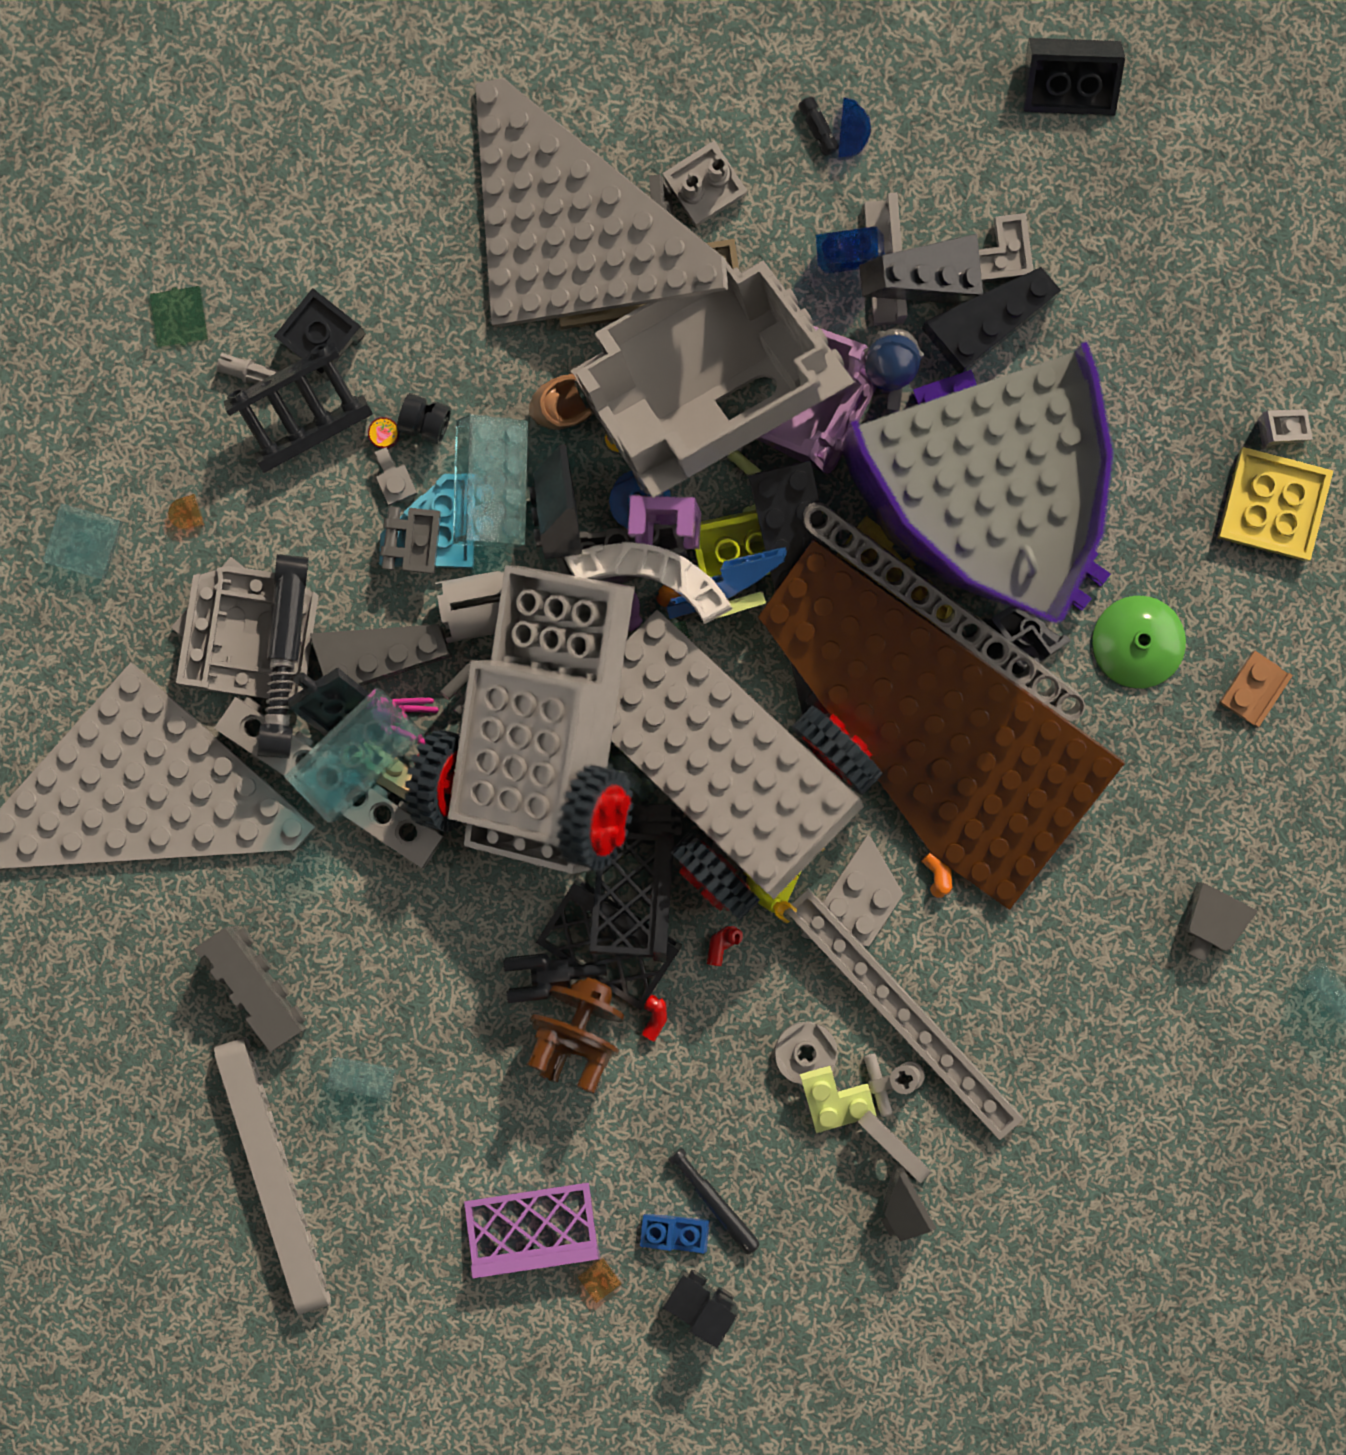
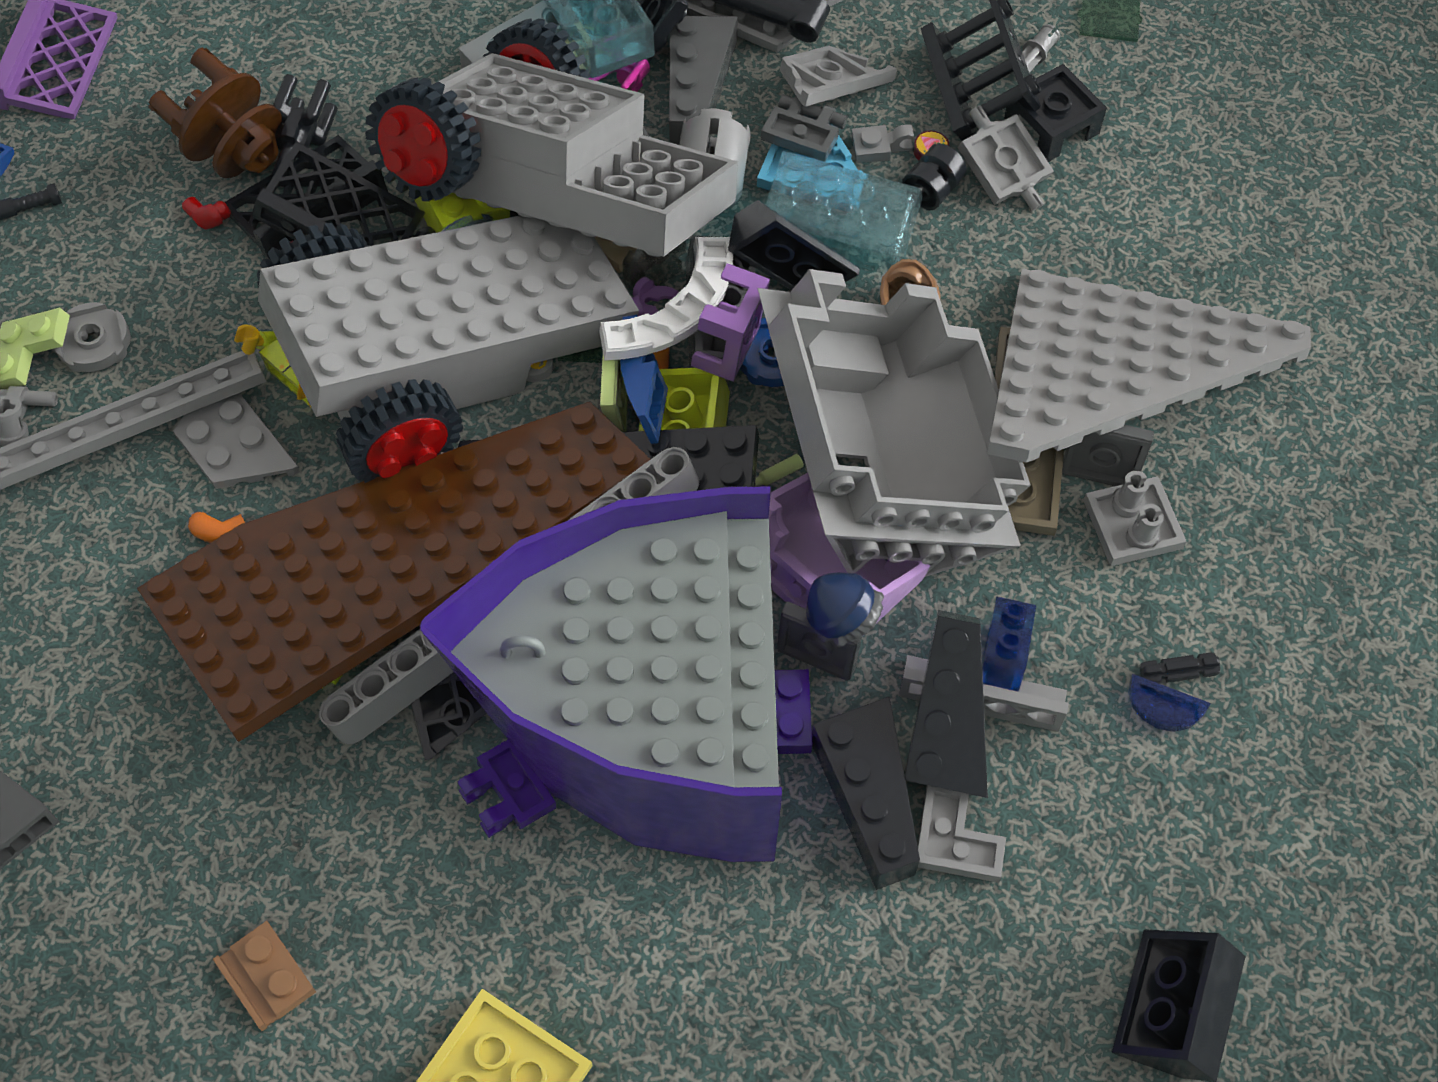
camera: 100 degrees right, 25 degrees down
(340, 537) = (831, 73): none -> light grey wing
(385, 364) = (1005, 159): none -> light grey plate
(721, 941) = (249, 291): red arm -> none
(1121, 654) = (396, 872): bright green dish -> none

